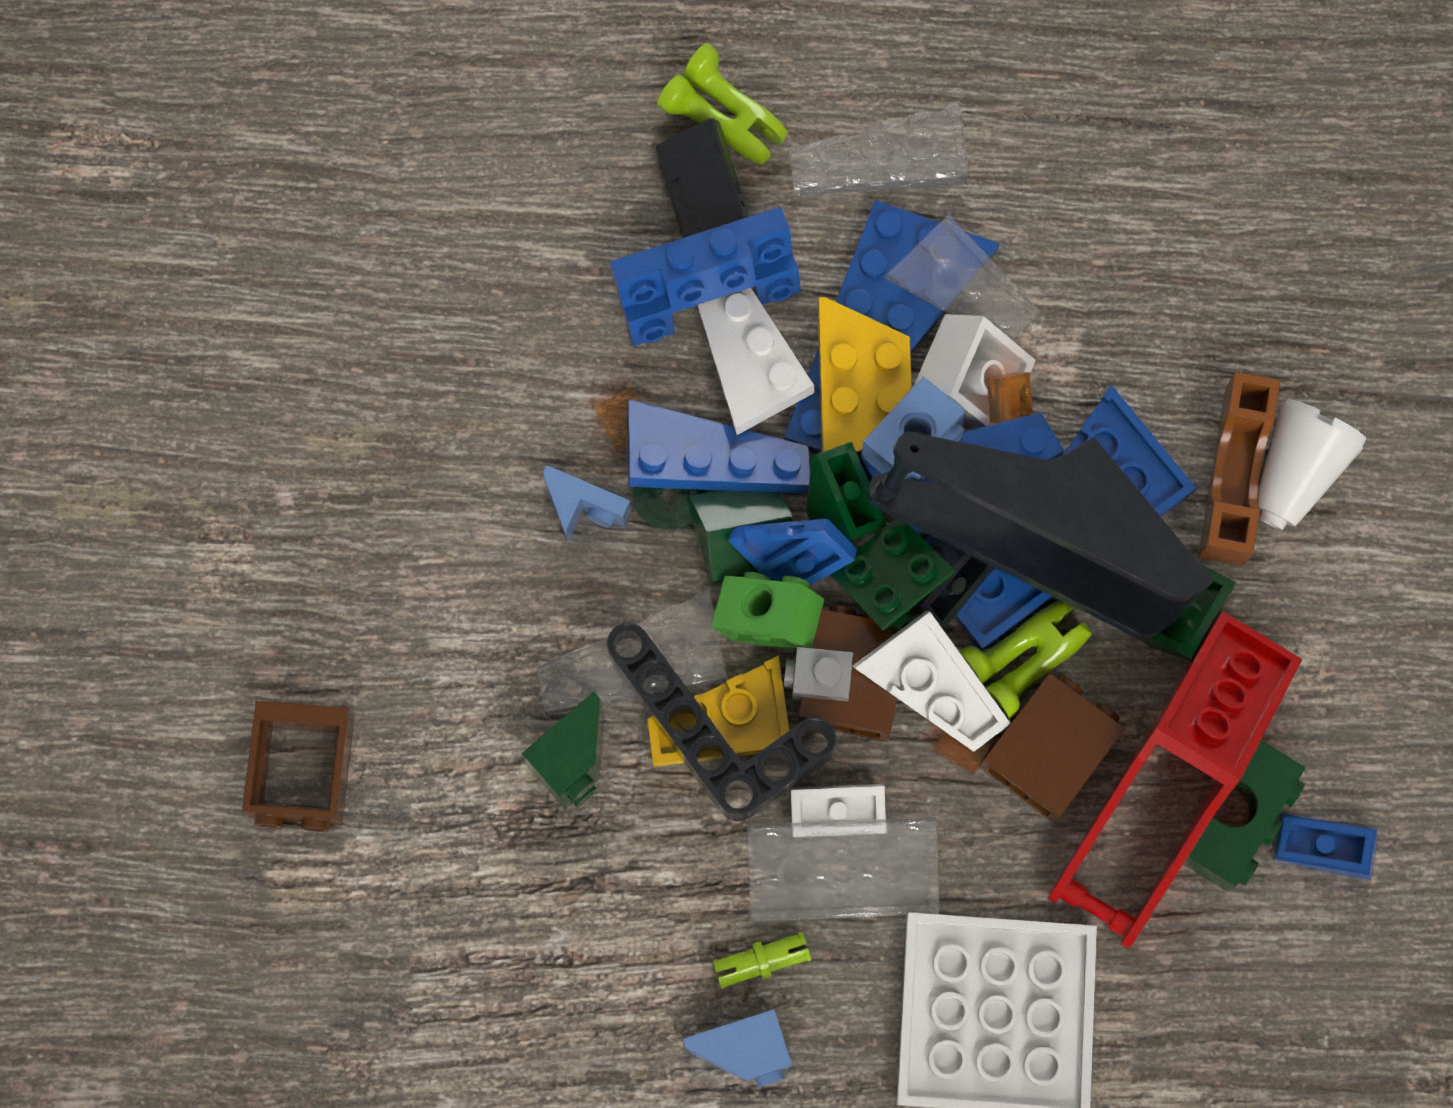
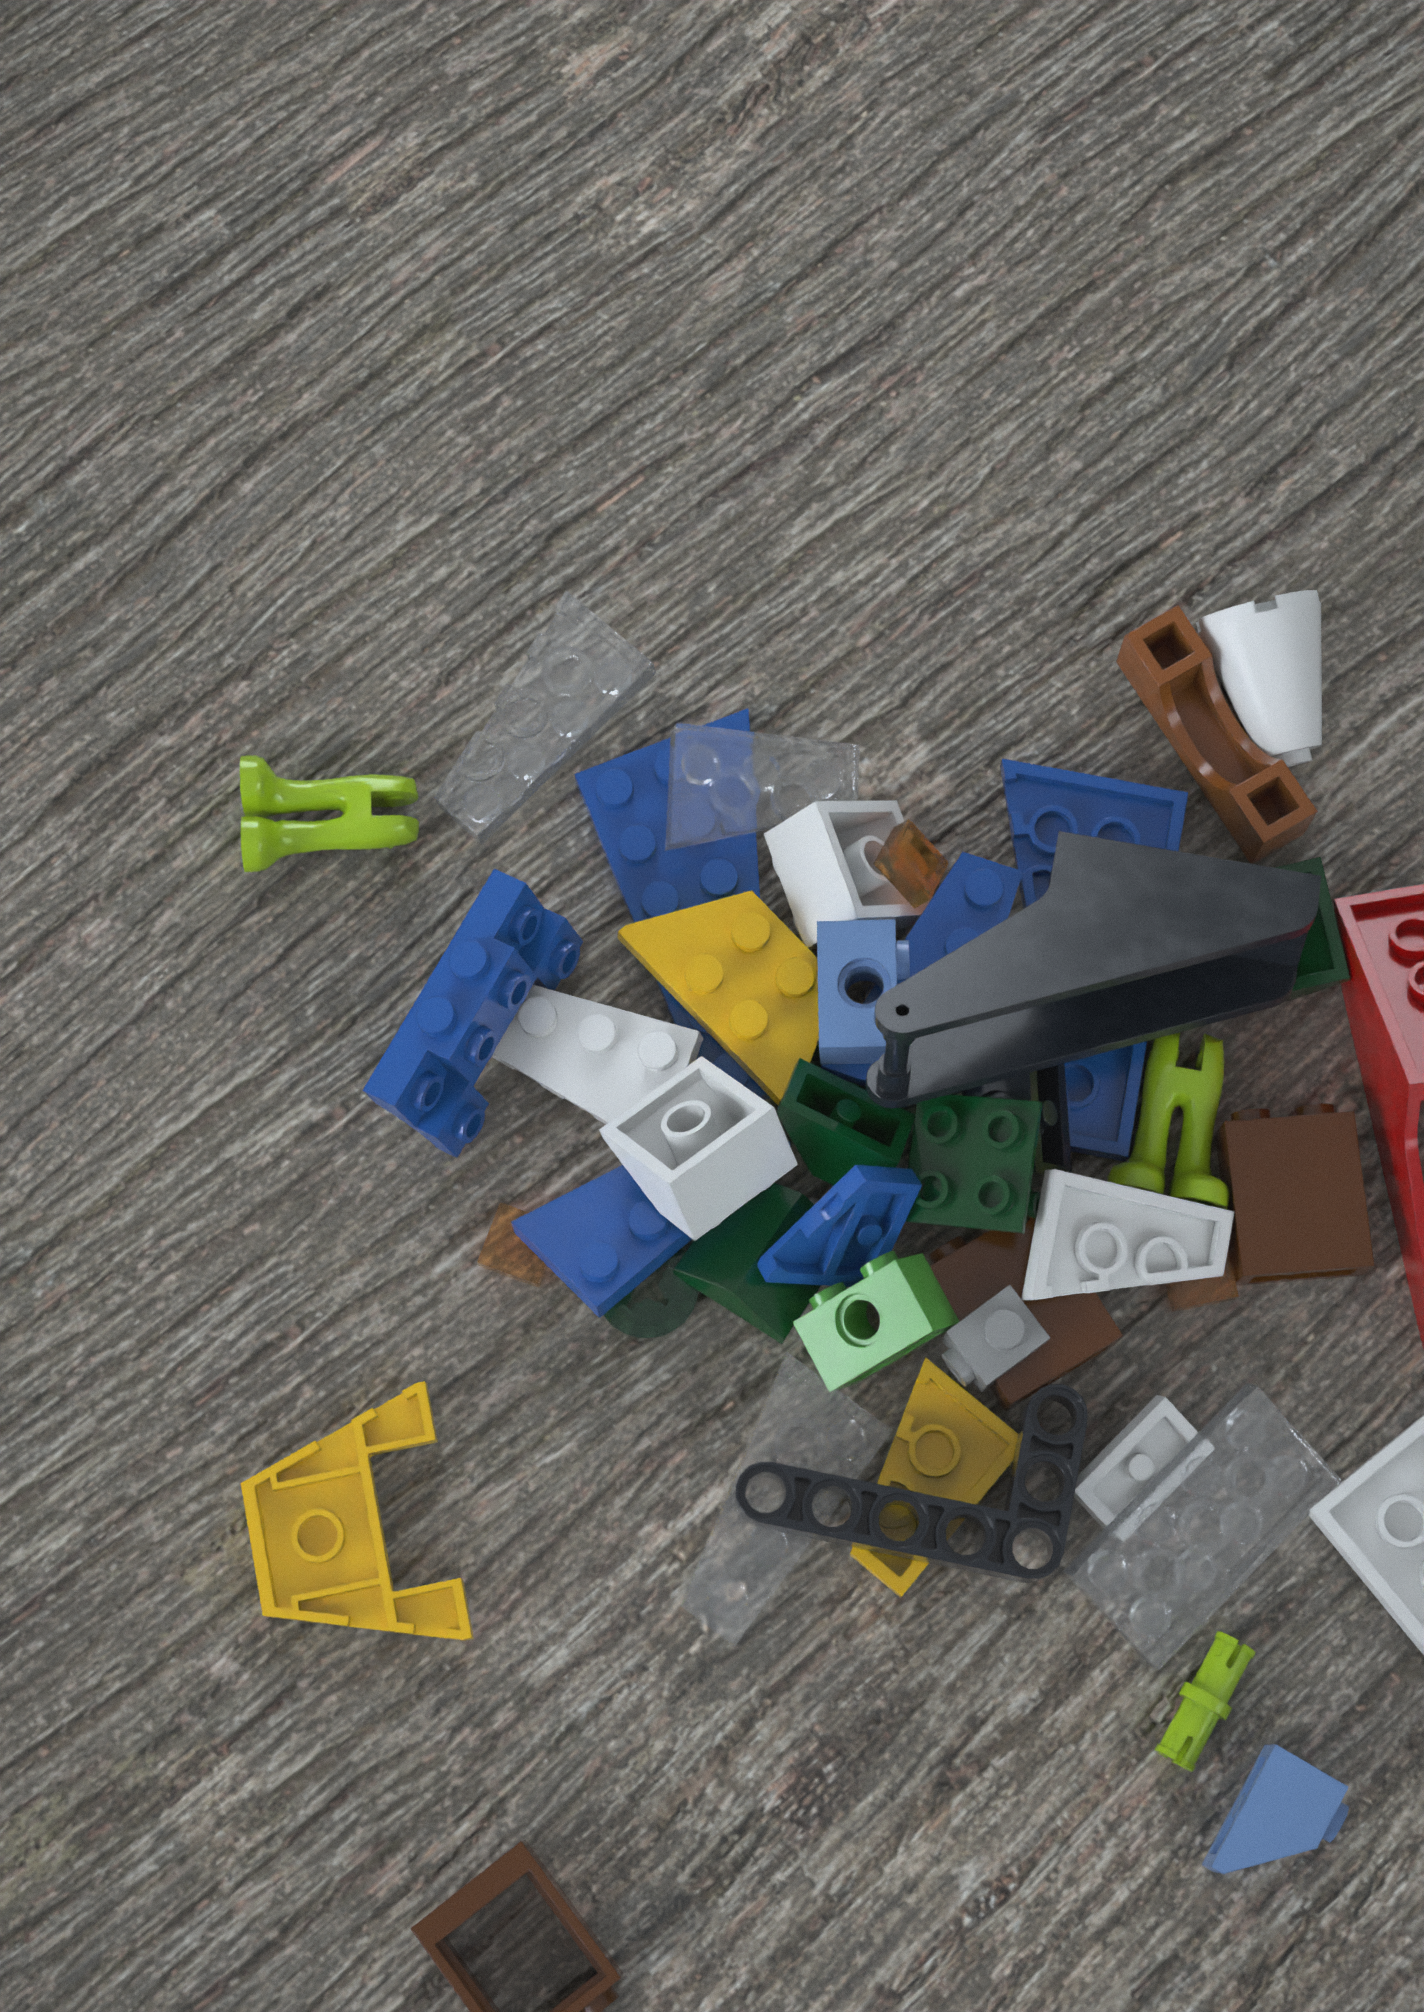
camera: 40 degrees left, 0 degrees up
(393, 472) = (323, 1536): none -> yellow wing
(570, 754) = (813, 1669): dark green slope -> none
(573, 496) = (543, 1381): medium blue slope -> none
(701, 178) = (372, 914): black piece -> none
(757, 441) = (700, 1146): none -> white slope

